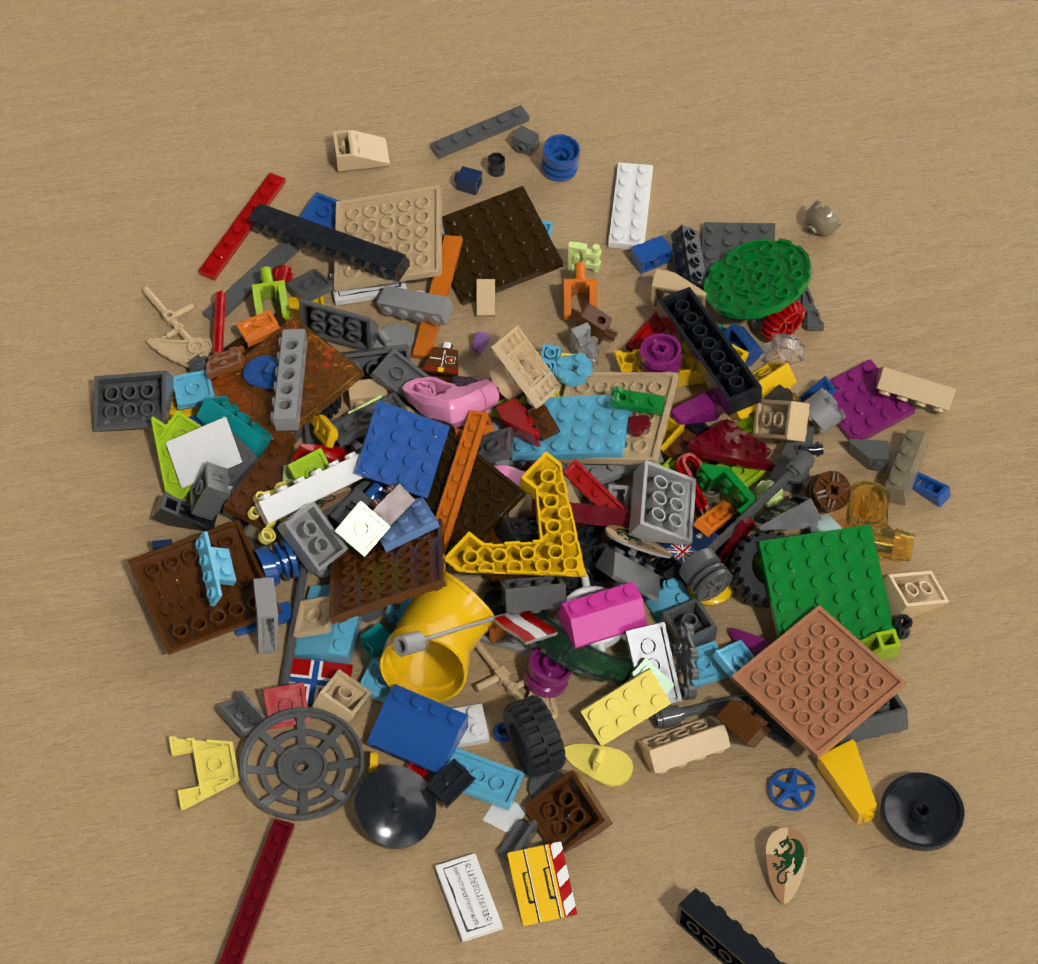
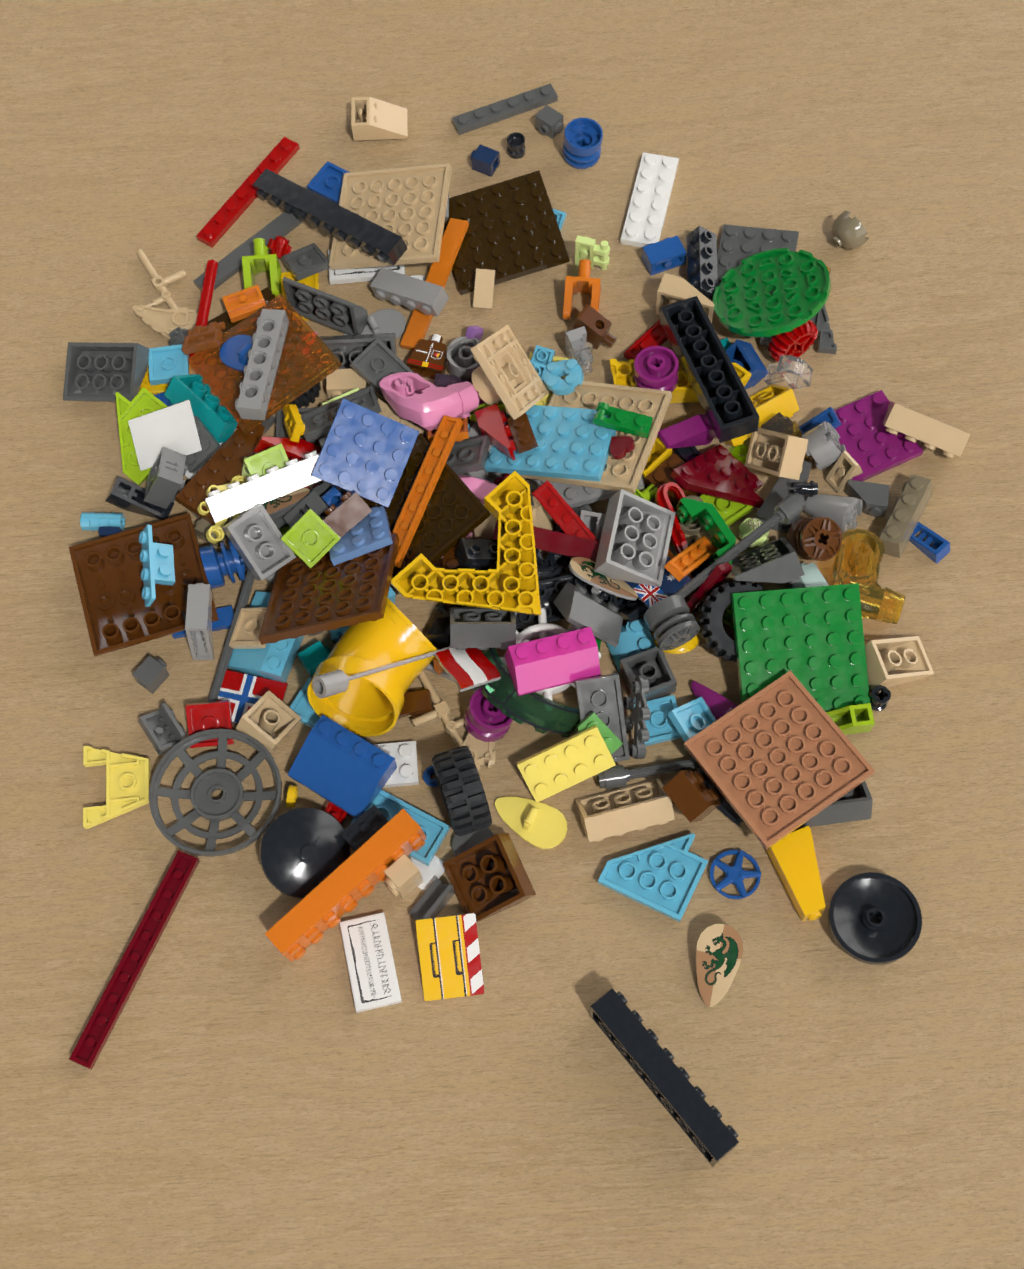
camera: 10 degrees right, 10 degrees up
(144, 537) = (92, 521): none -> medium azure axle
(222, 668) = (151, 674): none -> dark grey brick
(439, 830) = (345, 886): none -> orange brick
(477, 360) = (461, 359): none -> light grey brick
(479, 670) = (416, 703): none -> reddish brown slope
(489, 818) = (403, 877): none -> tan brick
(722, 797) = (657, 876): none -> medium azure wing
(843, 432) = (842, 471): none -> tan slope
(846, 463) = (837, 508): none -> light grey cone

